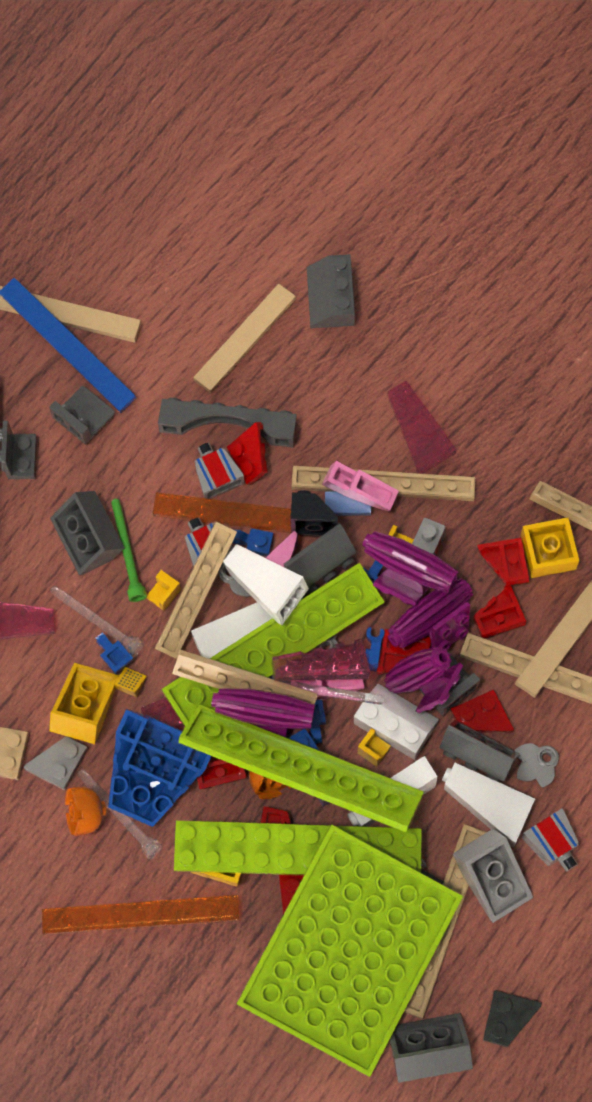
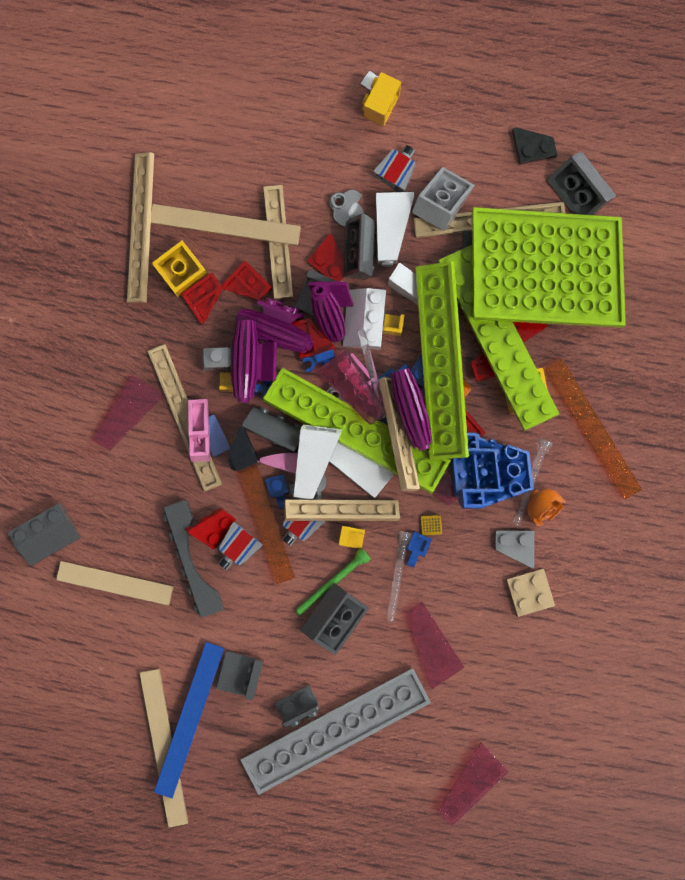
camera: 115 degrees left, 15 degrees up
(83, 703) = (465, 549): yellow slope -> none

